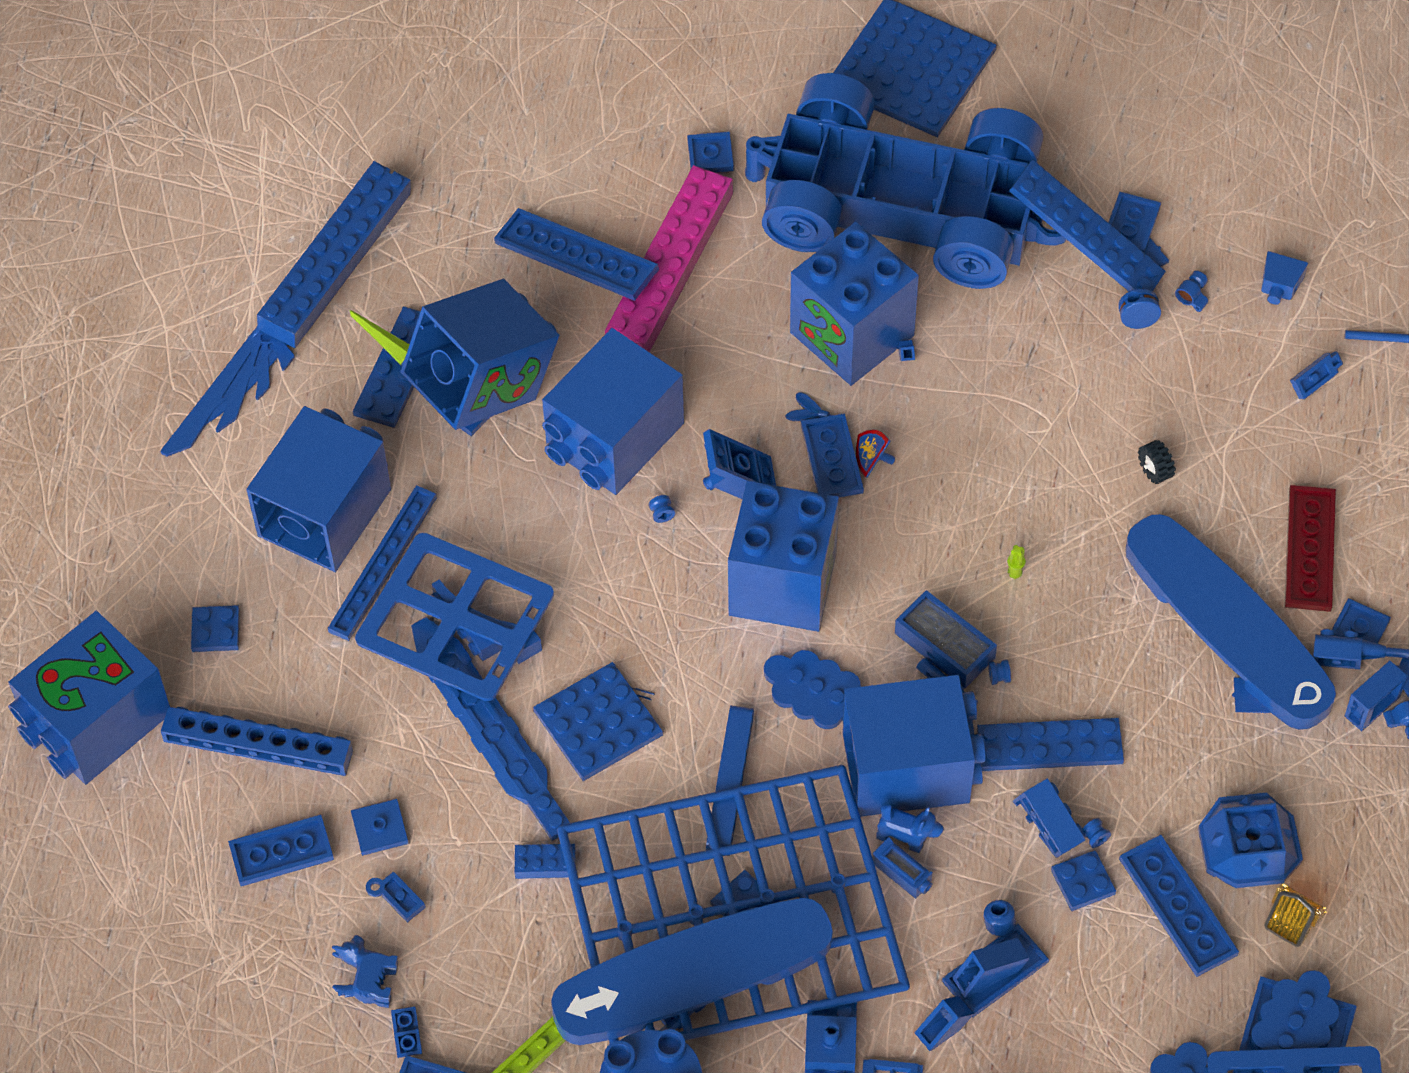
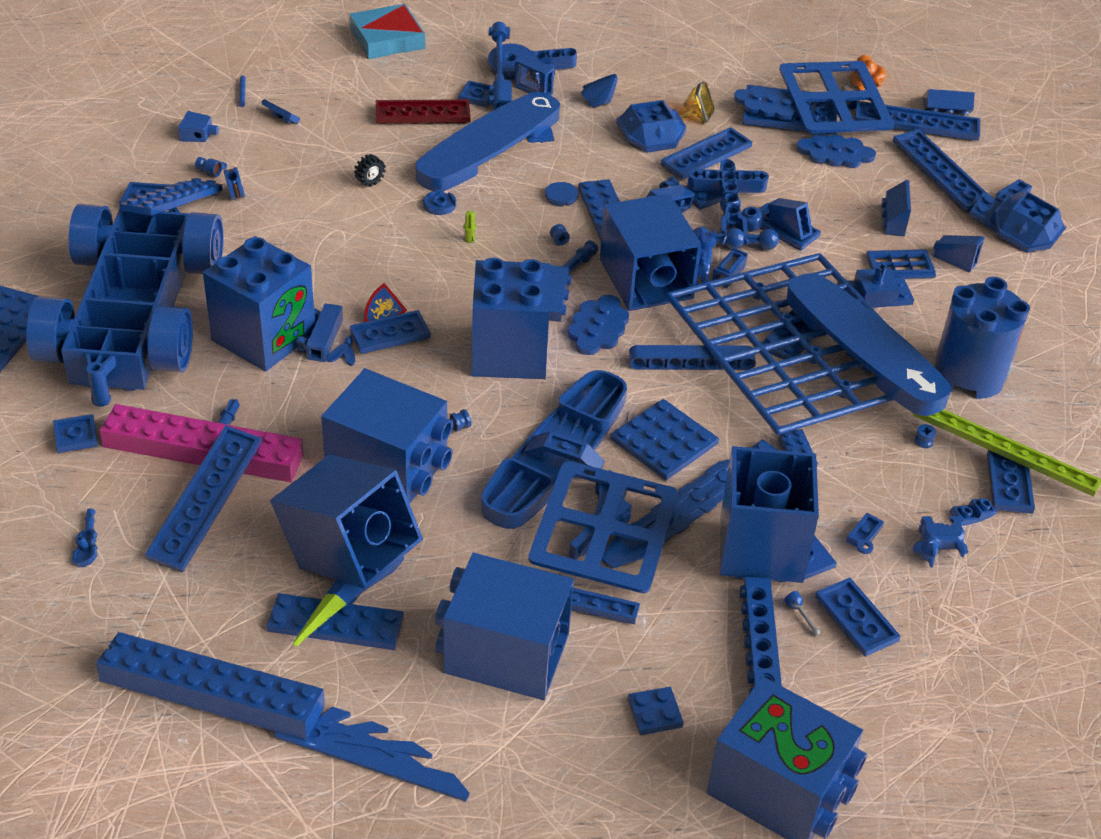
camera: 105 degrees left, 15 degrees down
(316, 793) = (795, 601): none -> hinge
(392, 749) = (768, 514): none -> blue brick
(537, 1022) = (925, 436): none -> blue wheel
(542, 162) = (86, 549): none -> blue piece
(587, 583) = (564, 447): none -> blue slope
(603, 602) = (526, 482): none -> blue piece
(713, 288) = (228, 414): none -> blue axle
(734, 464) = (422, 370): blue brick -> none
(839, 388) = (324, 333): none -> blue brick
(870, 641) = (559, 291): none -> blue wedge
(943, 1022) = (834, 240): blue slope -> none
(945, 638) = (549, 247): brick -> none
(963, 888) = (730, 183): none -> blue piece
(1094, 545) = (439, 202): none -> blue tile
(1099, 694) = (561, 193): none -> blue tile
(1343, 784) = (600, 90): none -> blue hat

